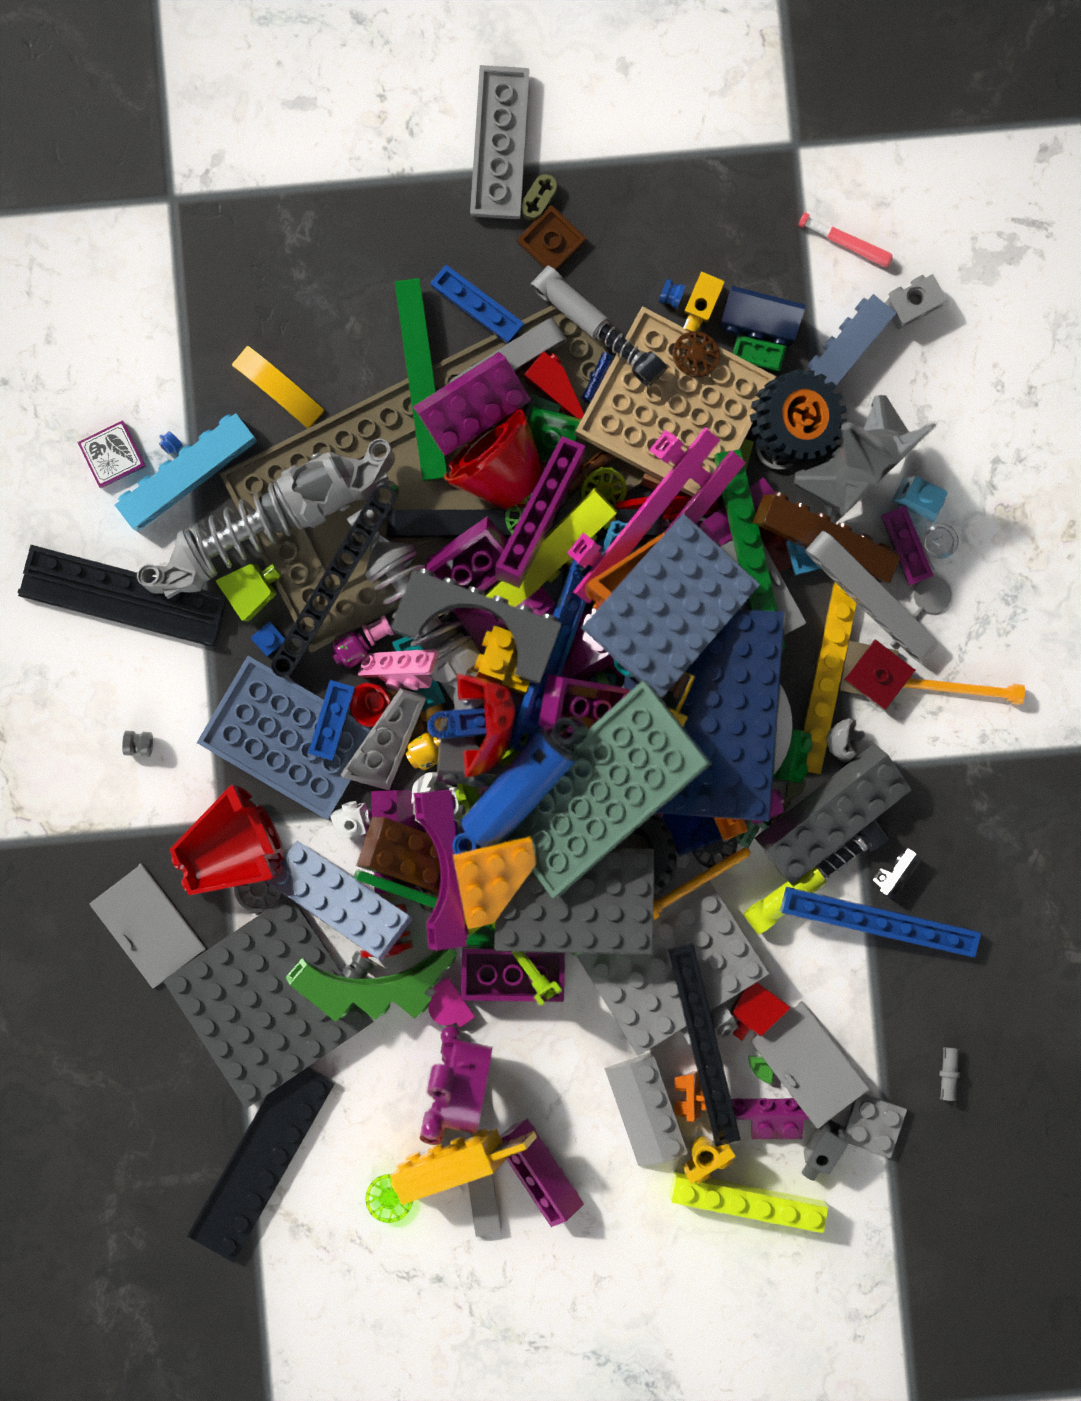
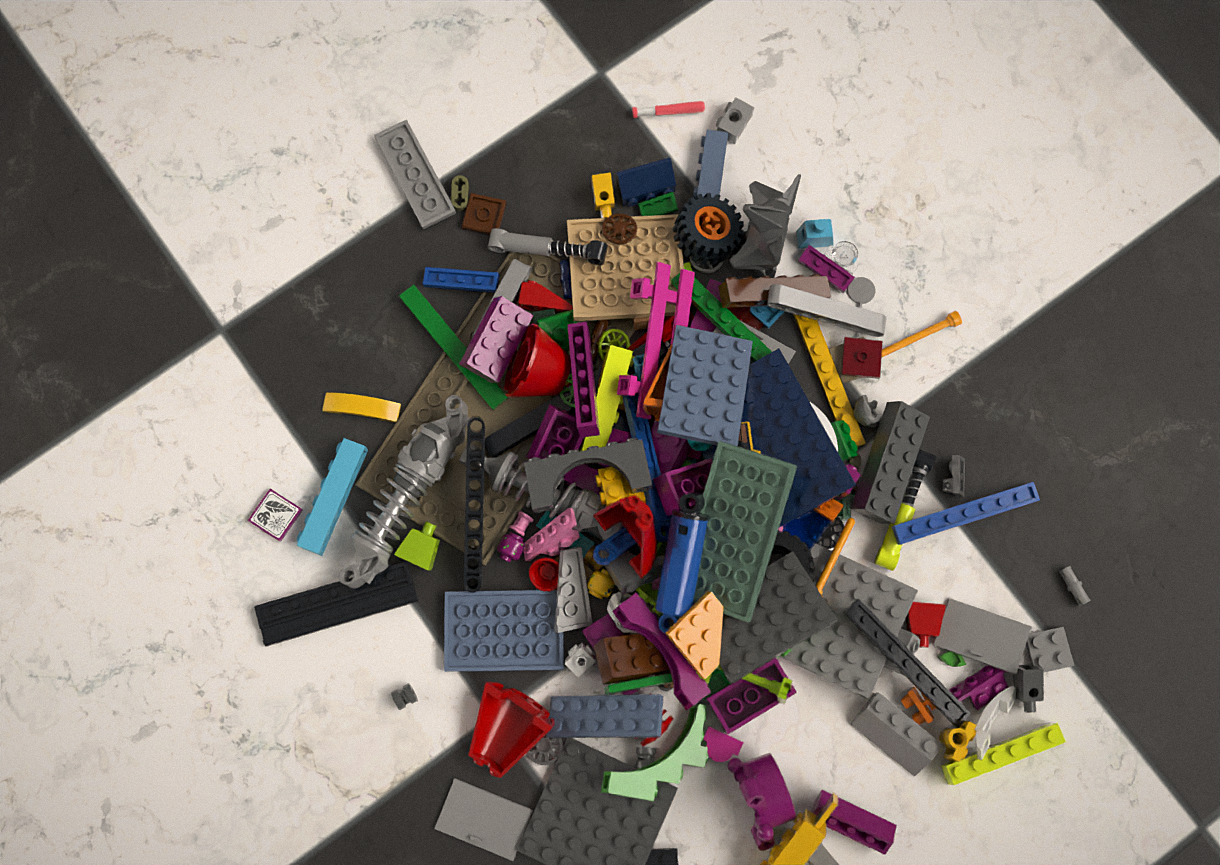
camera: 30 degrees left, 10 degrees down
(170, 443) = (310, 484): blue plate -> none
(268, 639) = (452, 573): blue plate -> none
(331, 720) = (527, 600): blue plate -> none
(672, 293) = (581, 202): blue wheel -> none
(784, 1148) = (1001, 702): none -> white slope

